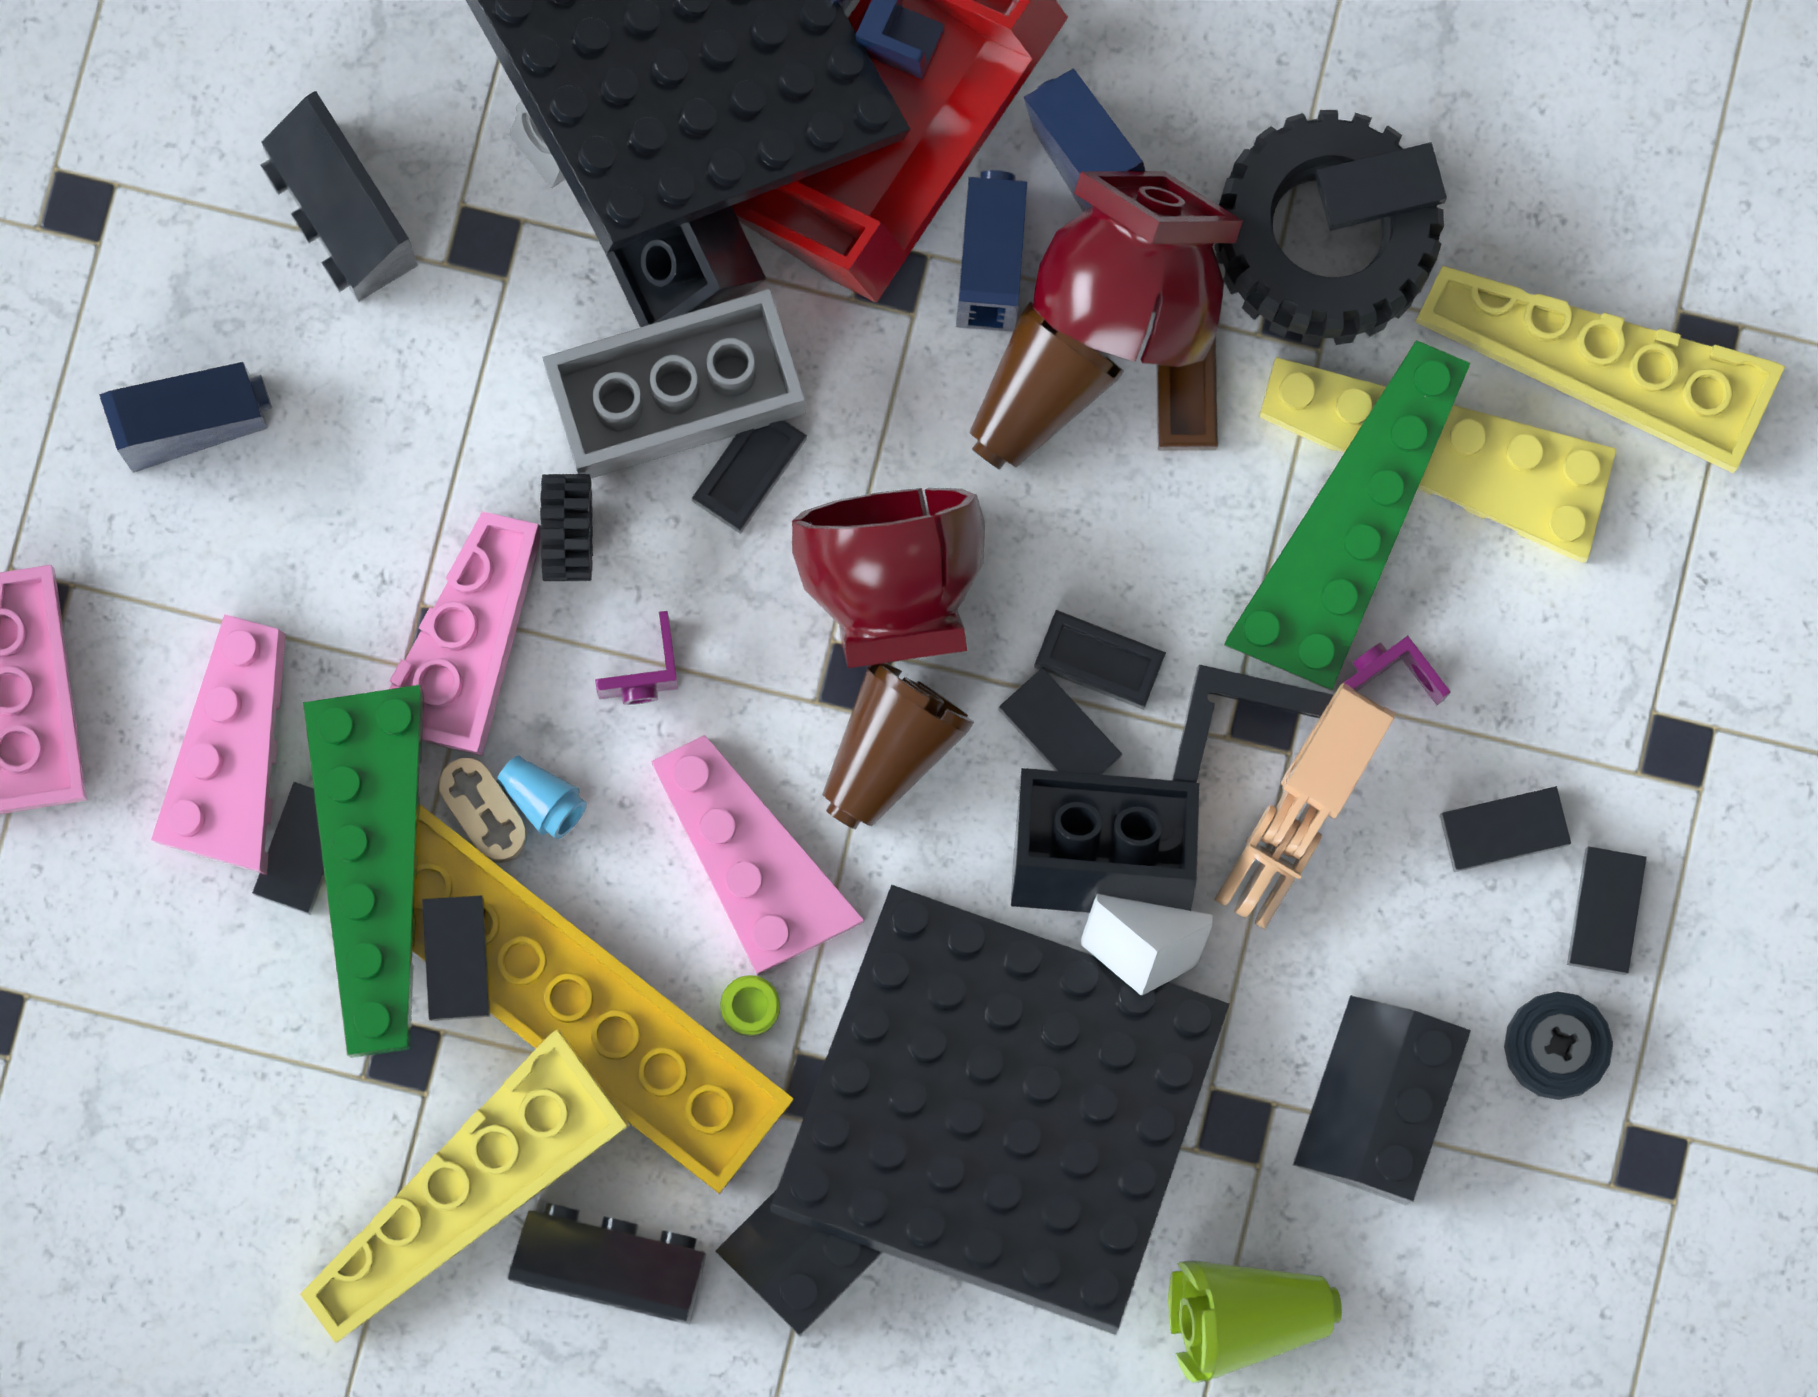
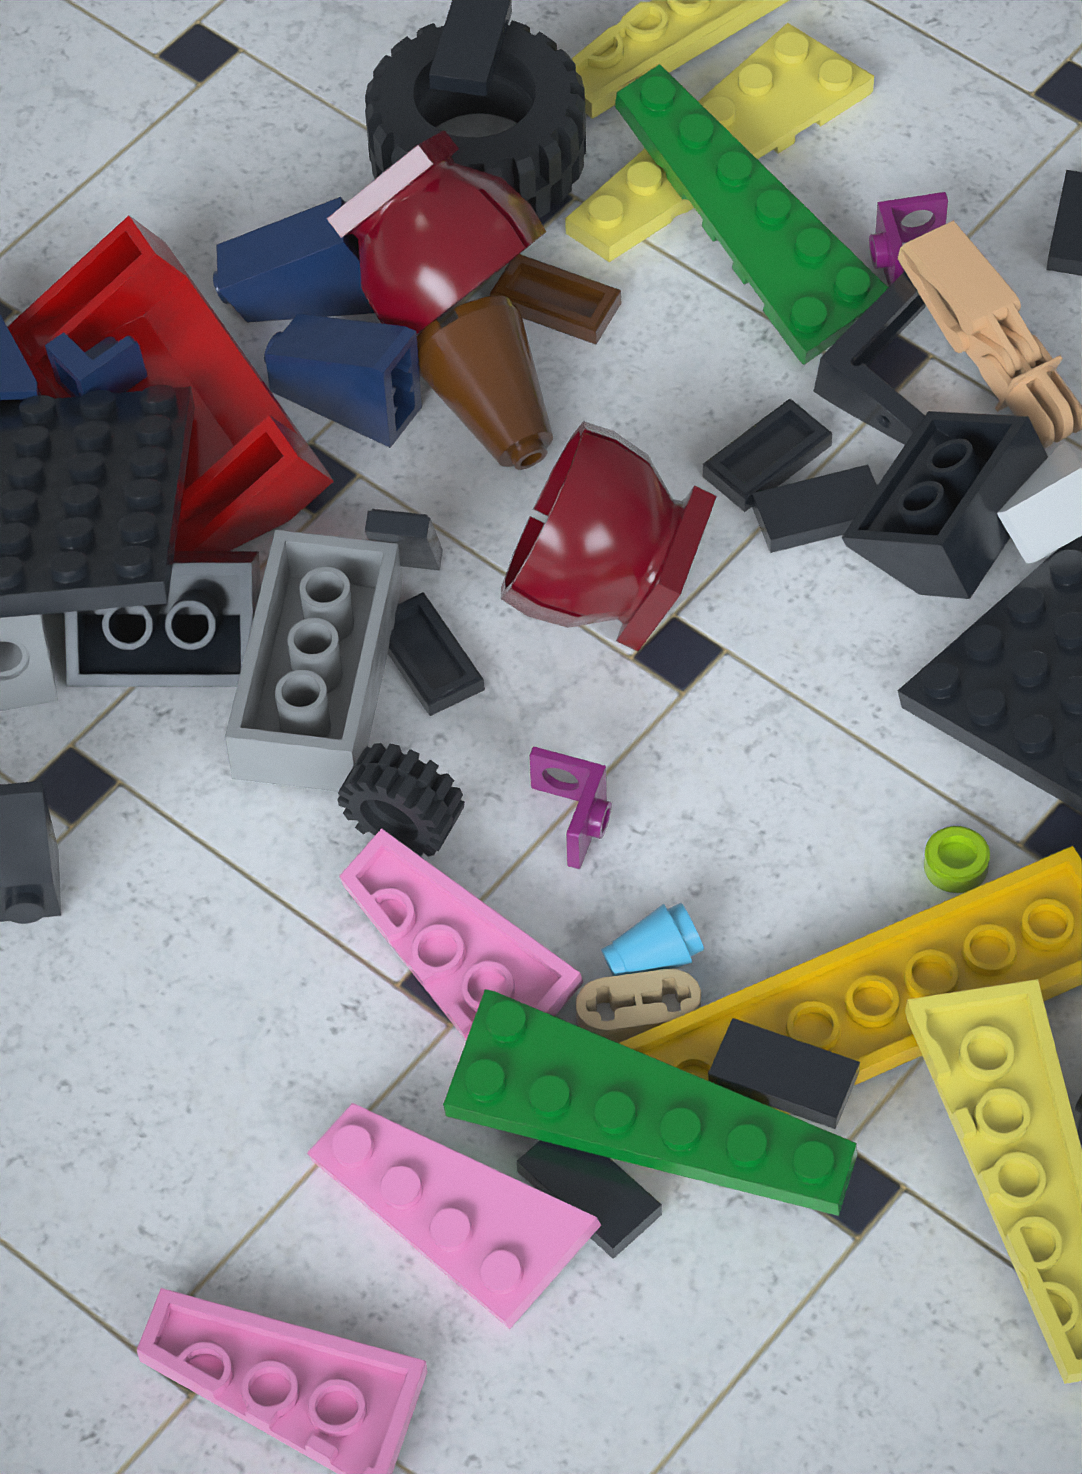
camera: 55 degrees left, 25 degrees down
(184, 414) = (81, 1097): dark blue slope -> none
(758, 870) = (820, 799): bright pink wing -> none
(826, 399) = (413, 534): none -> black tile
(889, 744) = (760, 623): reddish brown cone -> none

